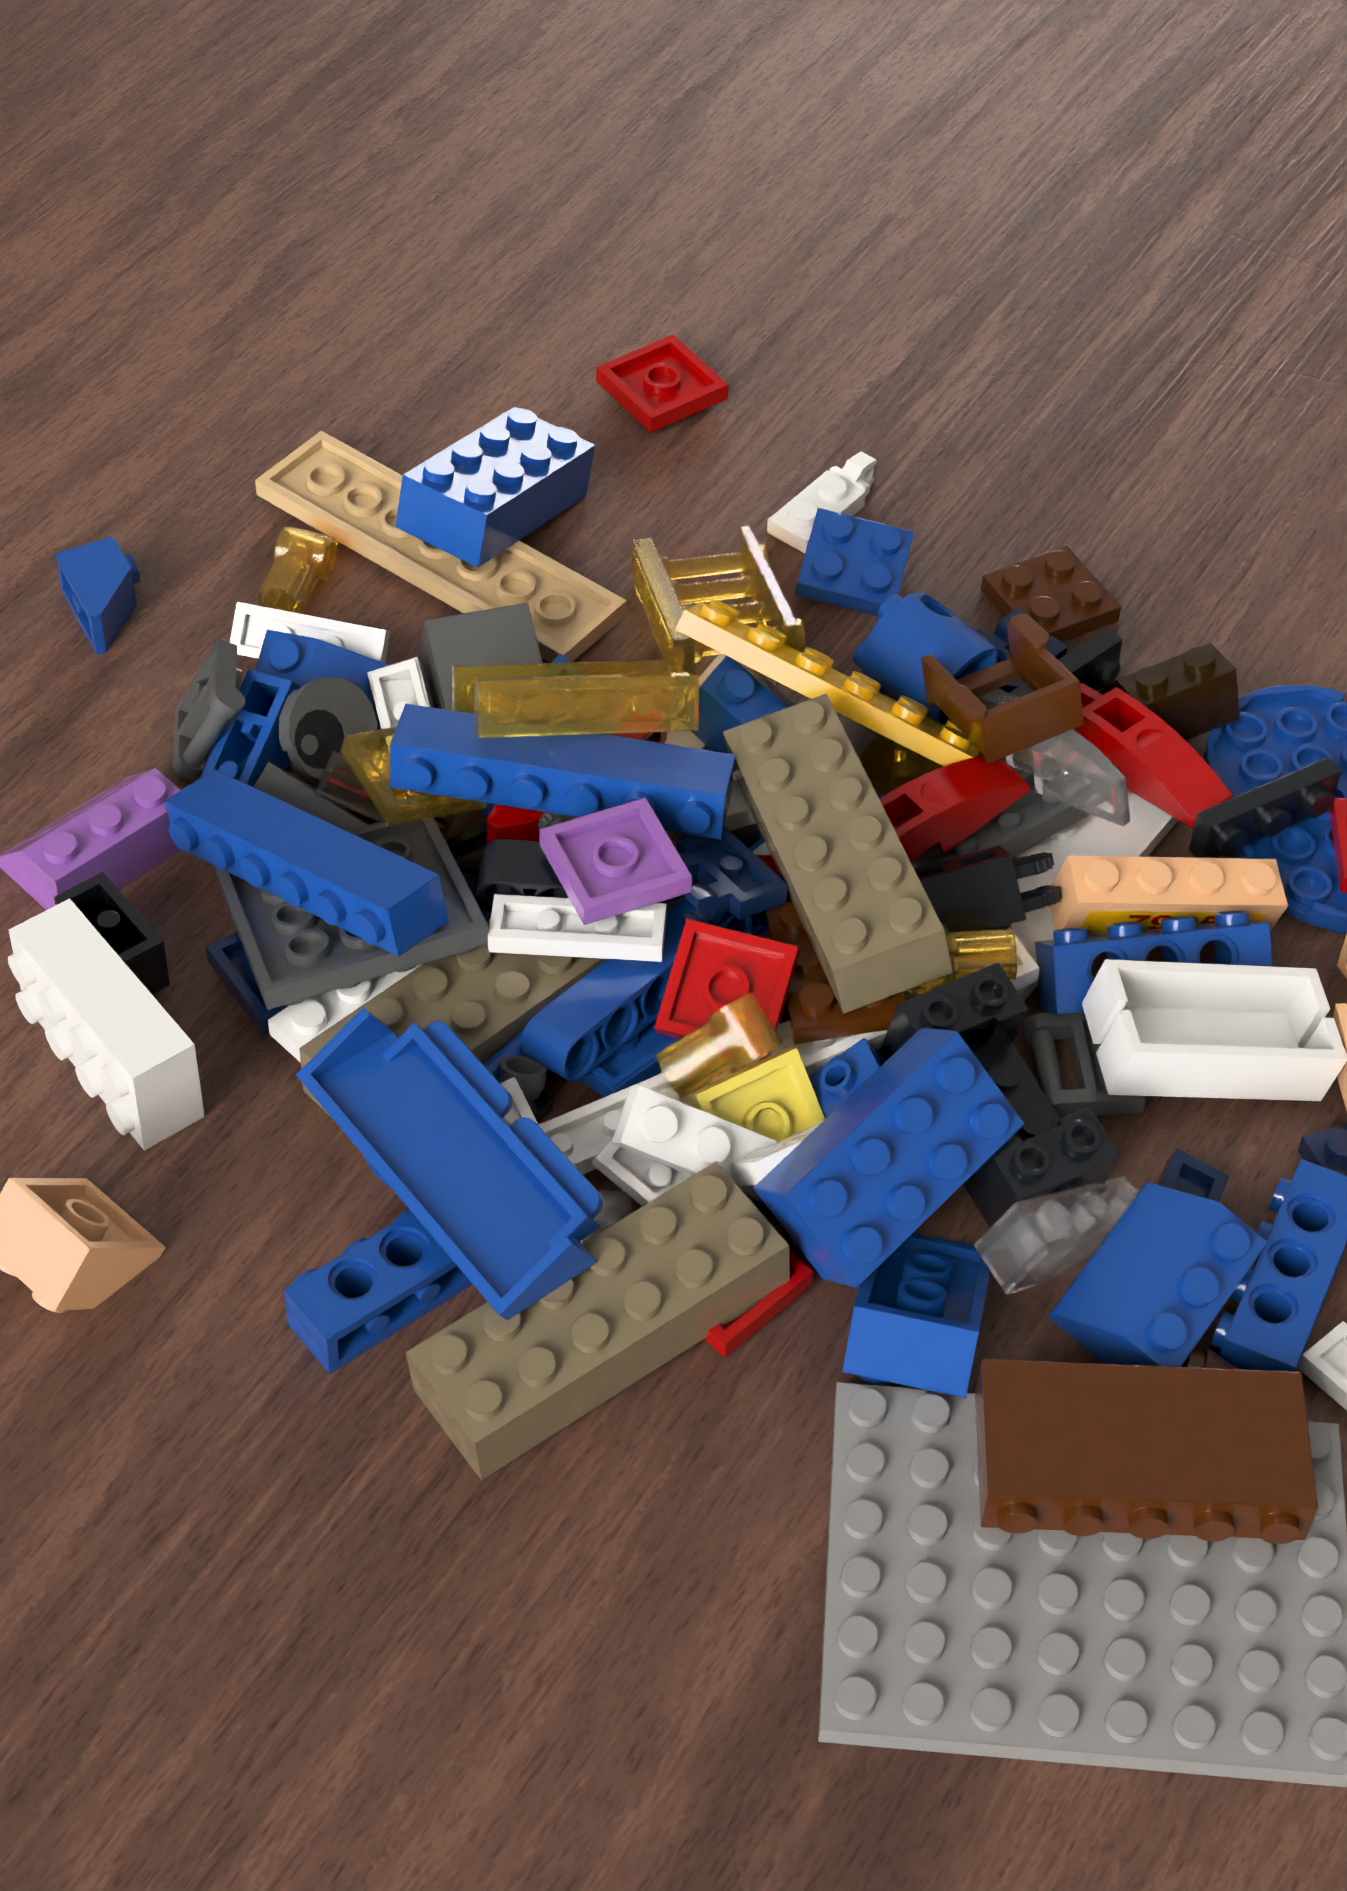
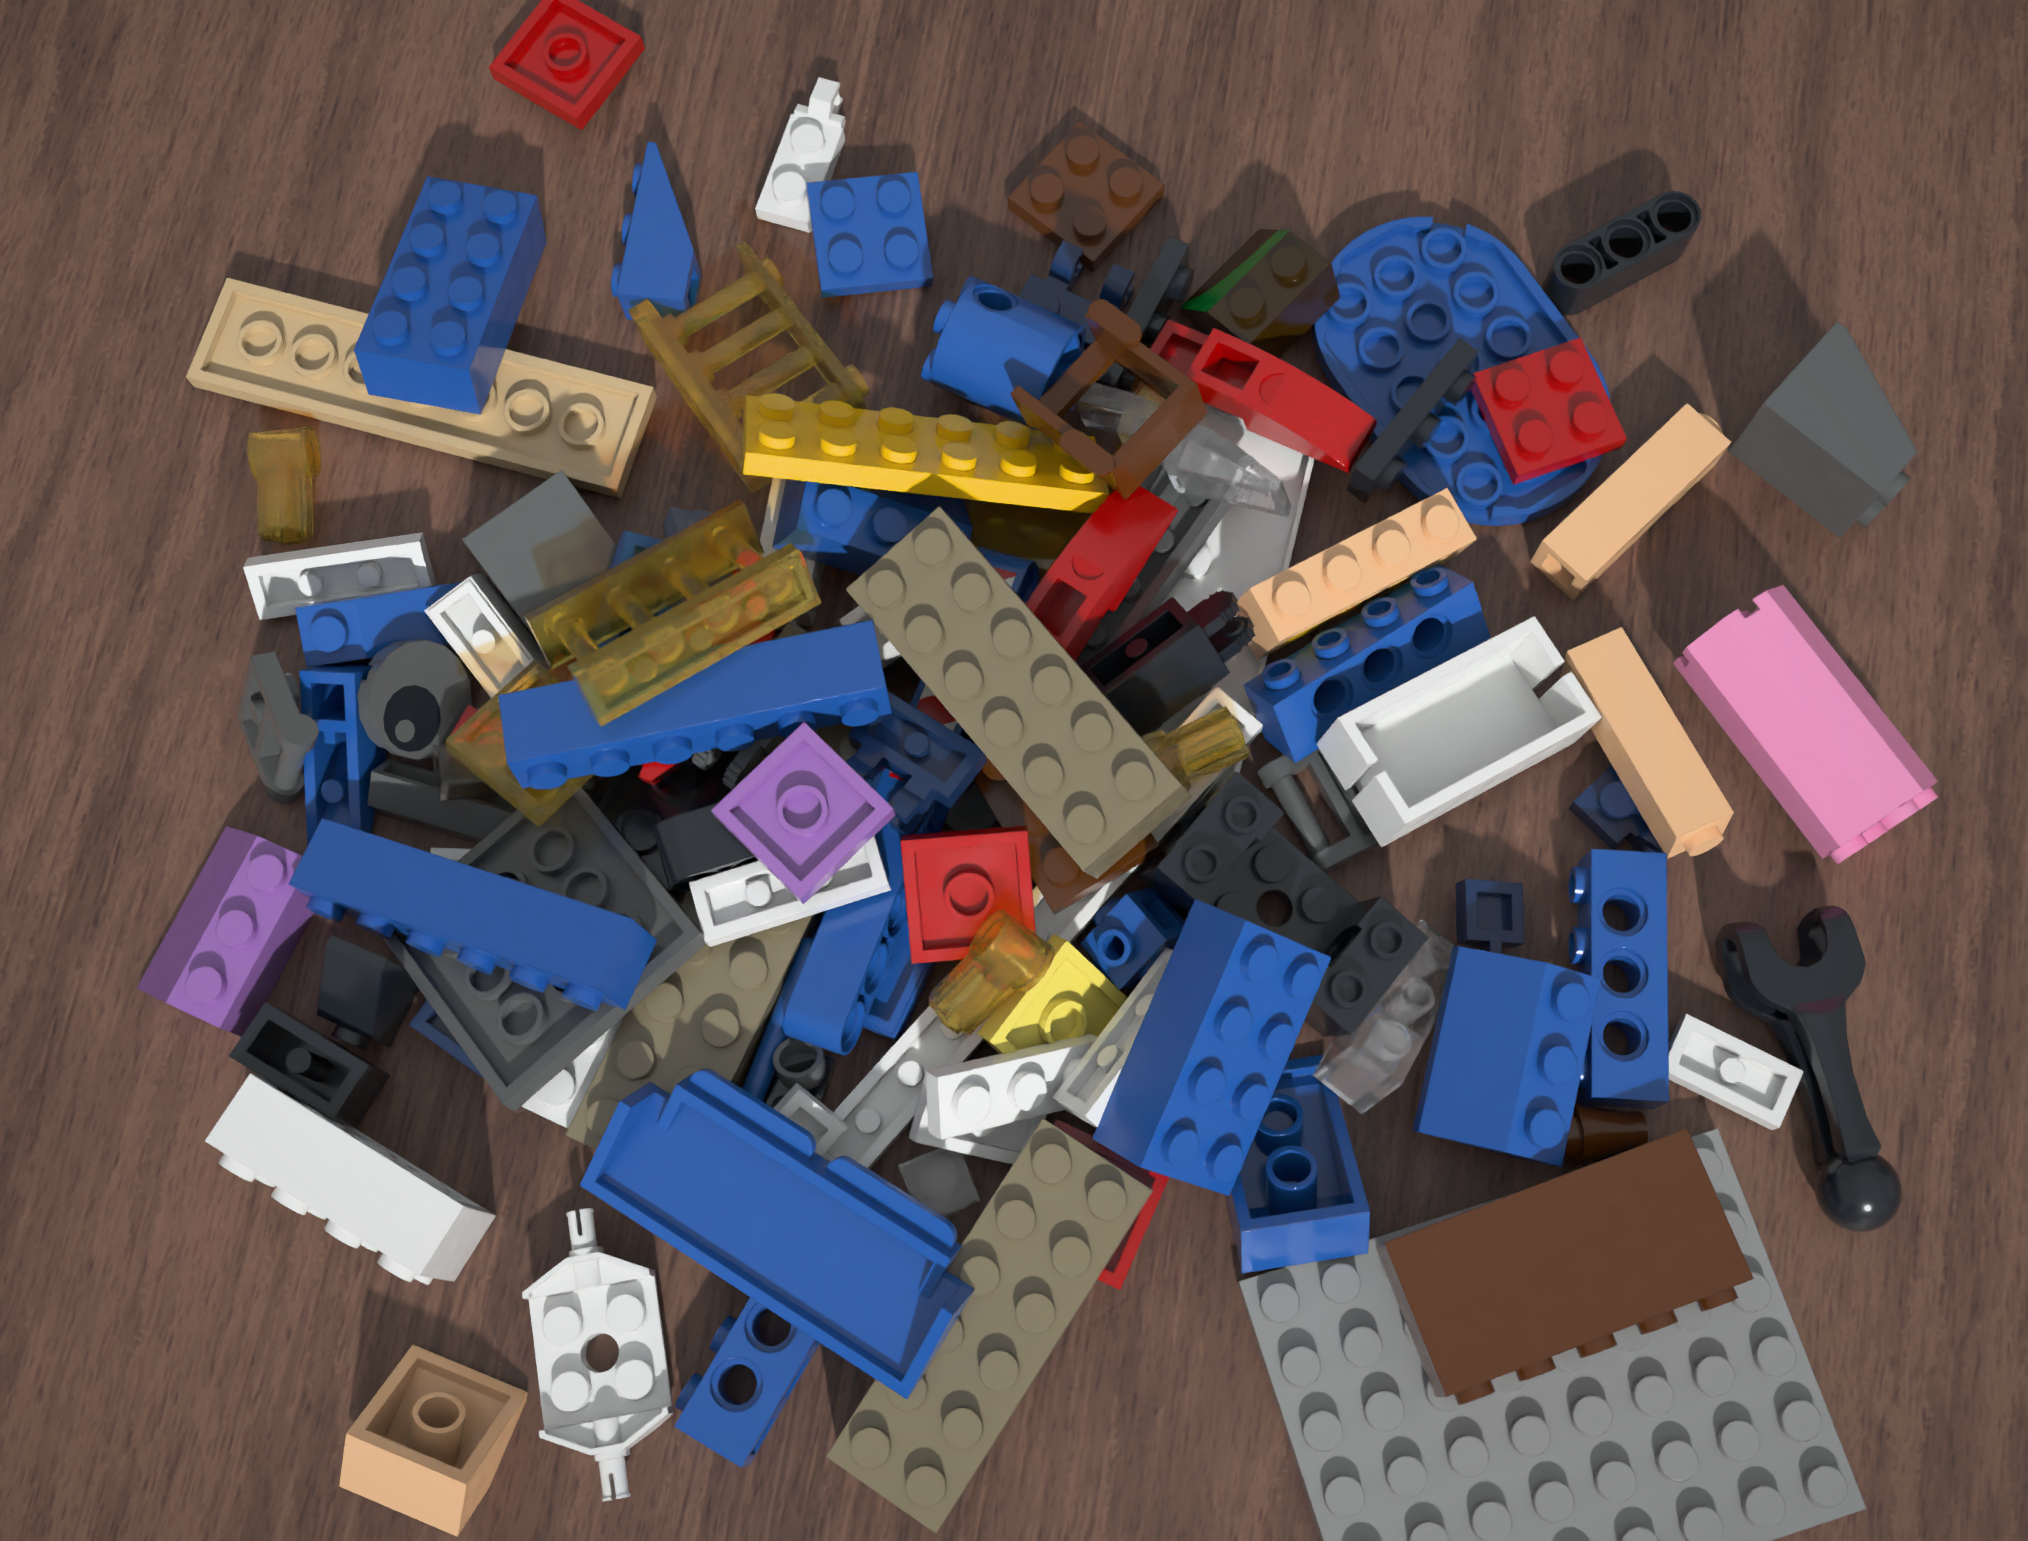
camera: 15 degrees left, 25 degrees up
(99, 588) = (84, 594): blue slope -> none
(186, 901) = (363, 994): none -> black slope
(241, 1192) = (590, 1408): none -> white plate
(674, 512) = (658, 250): none -> blue slope

